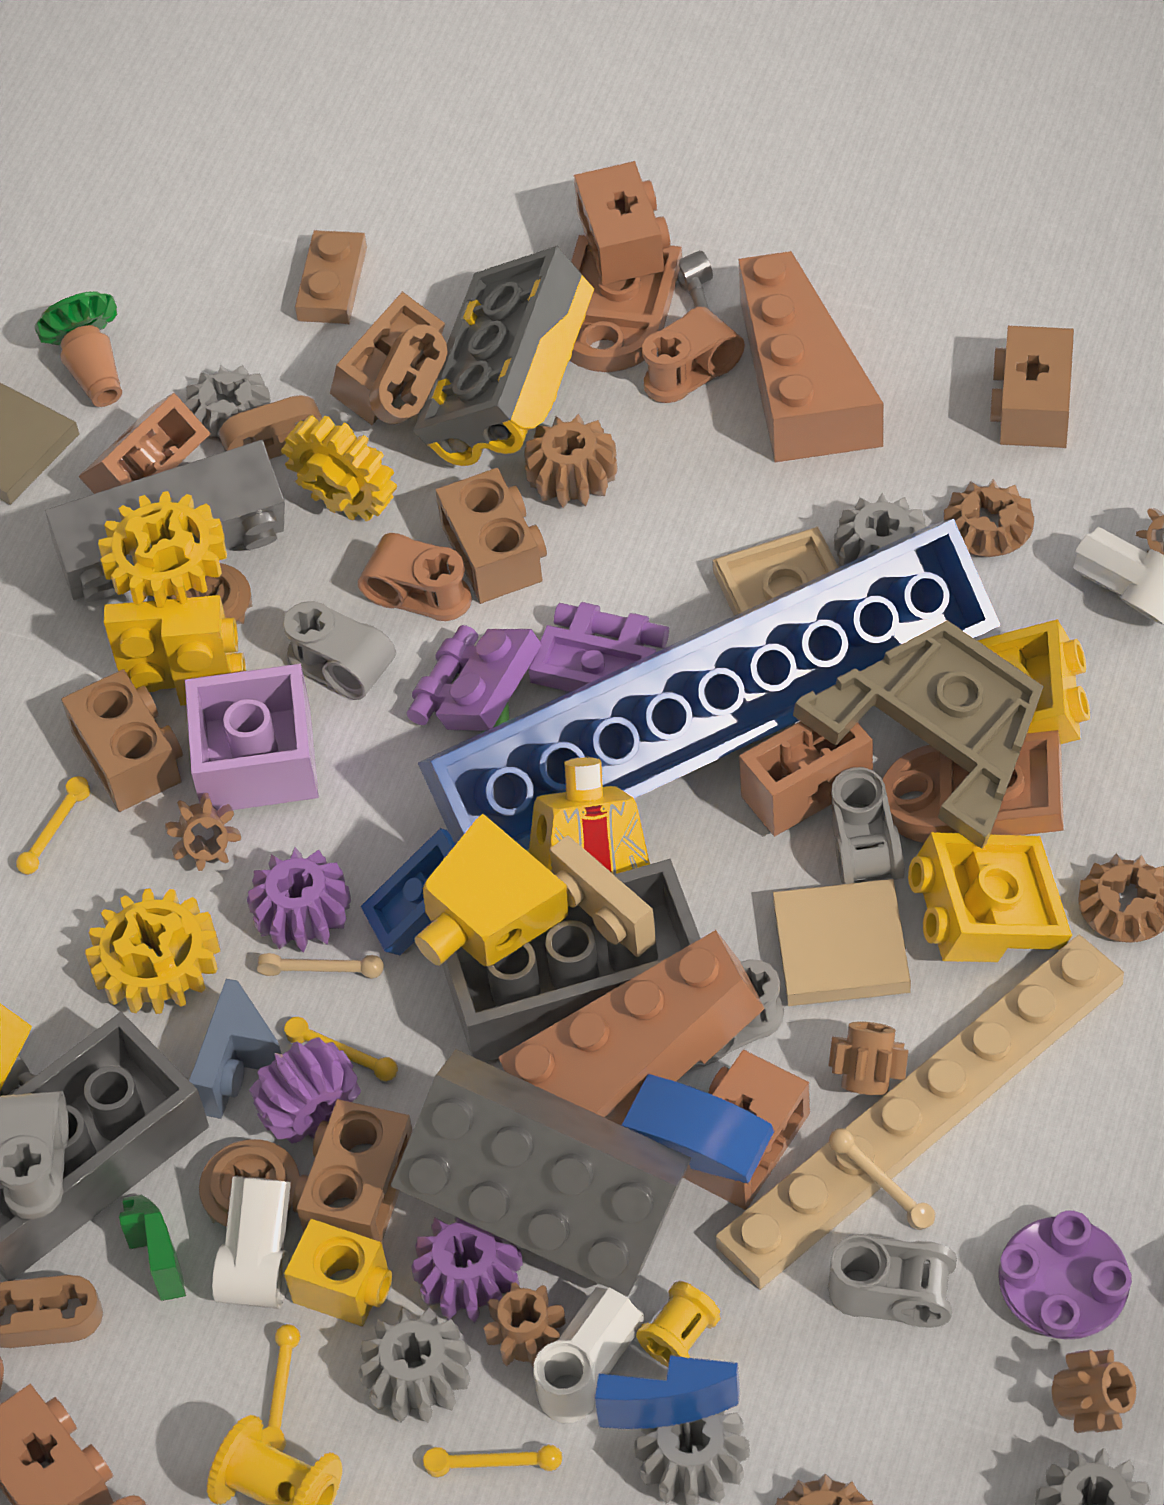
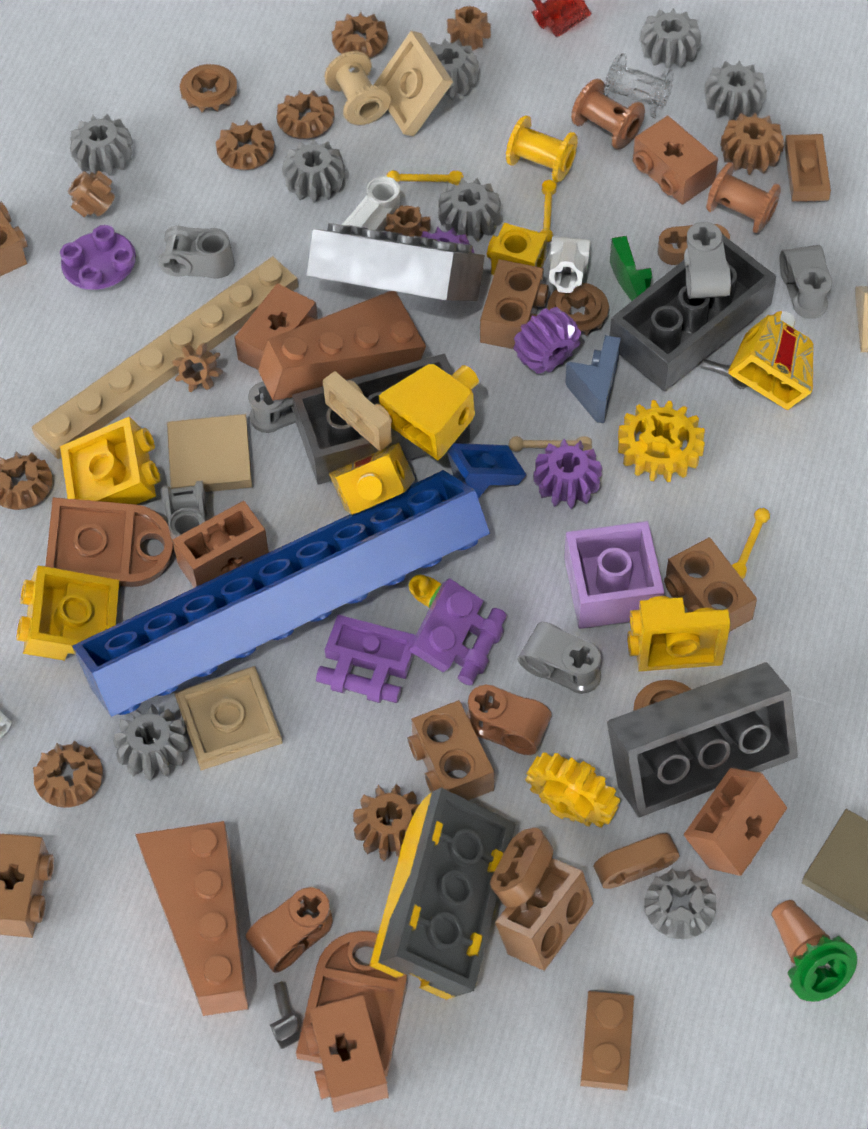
camera: 175 degrees right, 5 degrees up
(162, 549) = (708, 668): yellow gear -> none
(197, 846) = (640, 509): medium nougat gear -> none
(384, 1068) = (560, 405): yellow hinge -> none
(678, 1323) = (322, 216): yellow bush -> none
(691, 1393) = (313, 156): blue slope -> none
(701, 1126) = (301, 292): blue slope -> none
(918, 1215) = (217, 305): tan hinge -> none
(953, 699) = (115, 569): dark tan wing -> none

